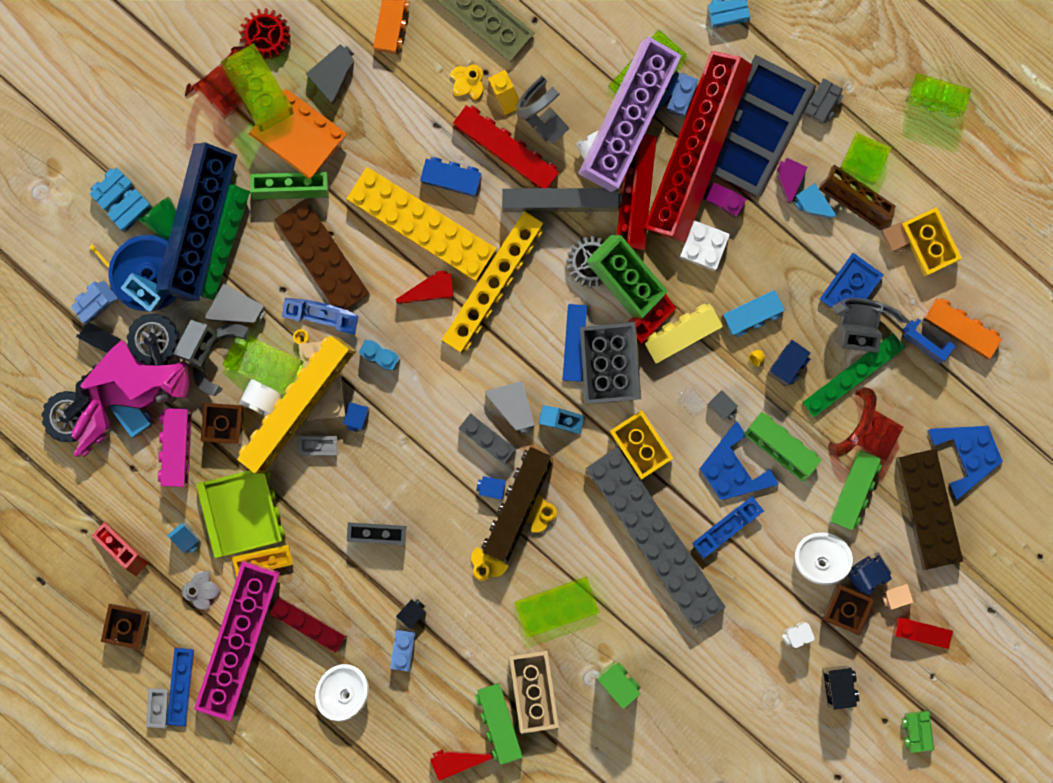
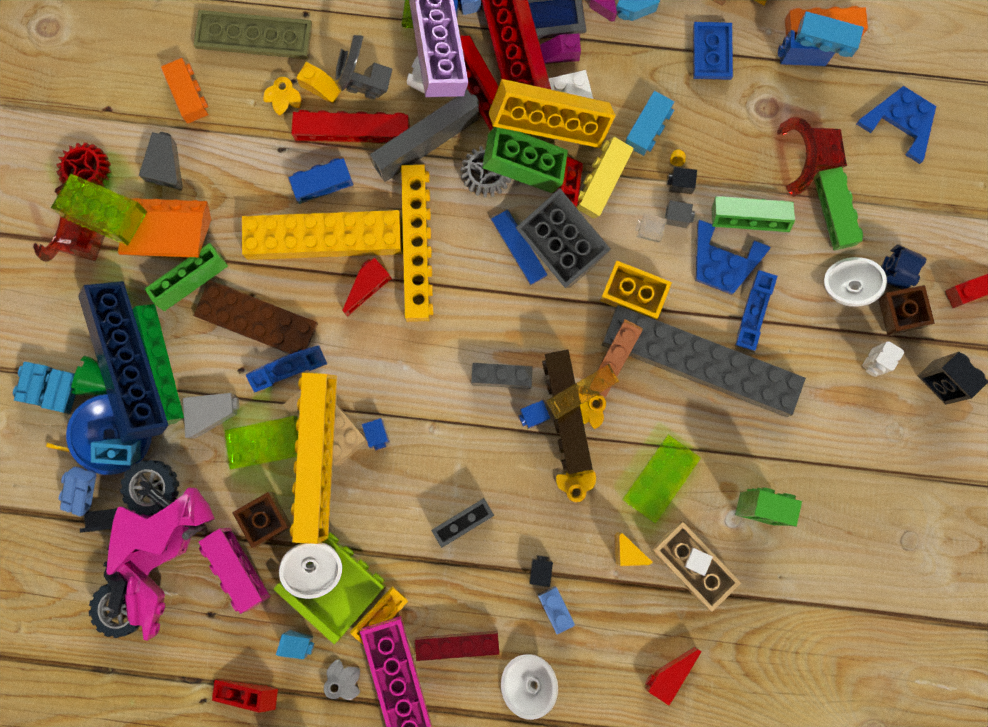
camera: 35 degrees left, 5 degrees down
(132, 419) = (180, 571): dark azure slope -> none
(198, 343) = (194, 464): dark grey piece -> none
(232, 497) = (313, 579): none -> white dish
(260, 398) = (278, 474): white brick -> none
(297, 336) = (279, 400): yellow hinge -> none
(317, 445) = (359, 482): light grey plate -> none
(384, 357) = (355, 369): dark azure brick -> none
(488, 646) = (627, 553): none -> yellow slope
(499, 723) = (685, 615): bright green brick -> none
(513, 405) = (504, 332): light grey slope -> none
(537, 688) = (698, 561): none -> white tile
(538, 496) = (582, 391): none -> clear yellow tile
(561, 419) = (552, 317): dark azure slope -> none
(585, 487) = (621, 348): none -> nougat plate
(671, 256) = (551, 113): none -> yellow brick
(745, 379) = (682, 180): none -> black brick
(788, 363) = (709, 141): dark blue brick -> none
(852, 375) = (765, 120): green plate -> none
(860, 323) = (742, 69): dark grey piece -> none
(897, 596) = (936, 272): light nougat brick -> none
(929, 509) = (909, 183): dark brown brick -> none
(942, 345) = (829, 34): none -> dark azure brick

